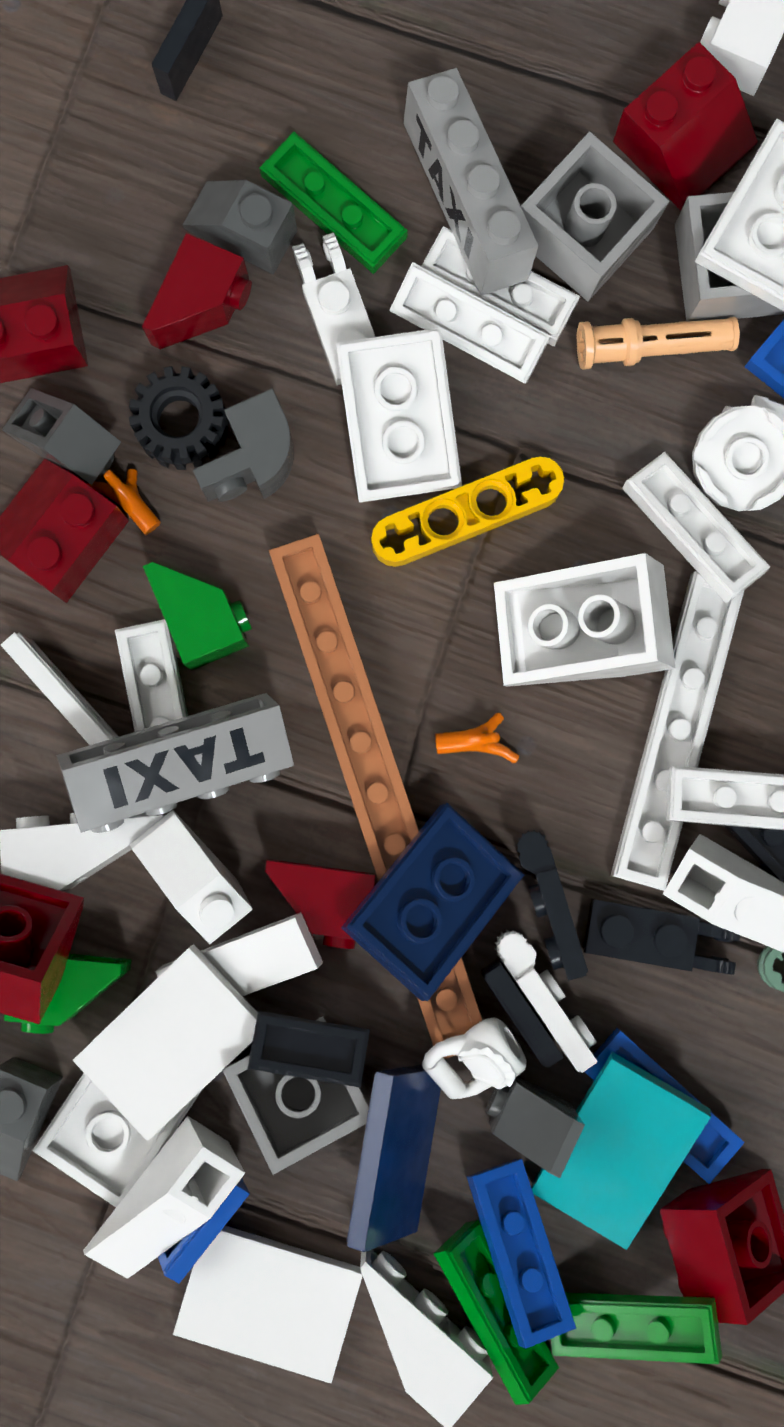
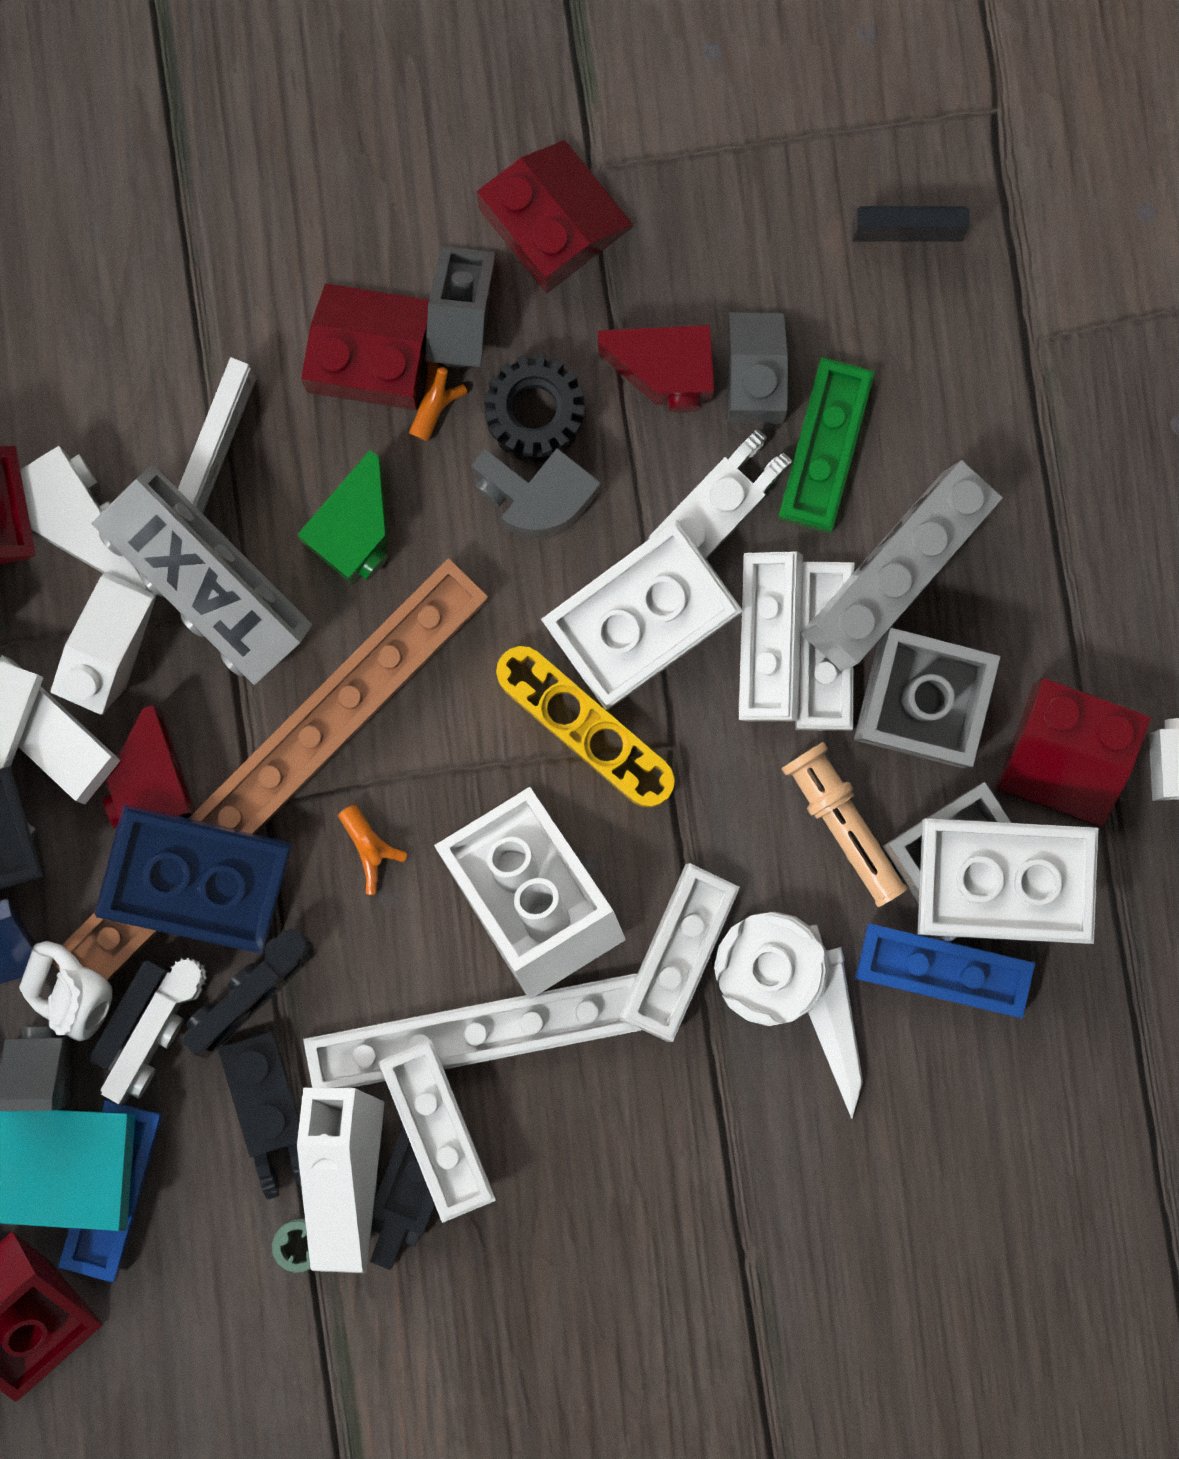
camera: 60 degrees right, 0 degrees up
(151, 674) = (275, 509): white tile -> none

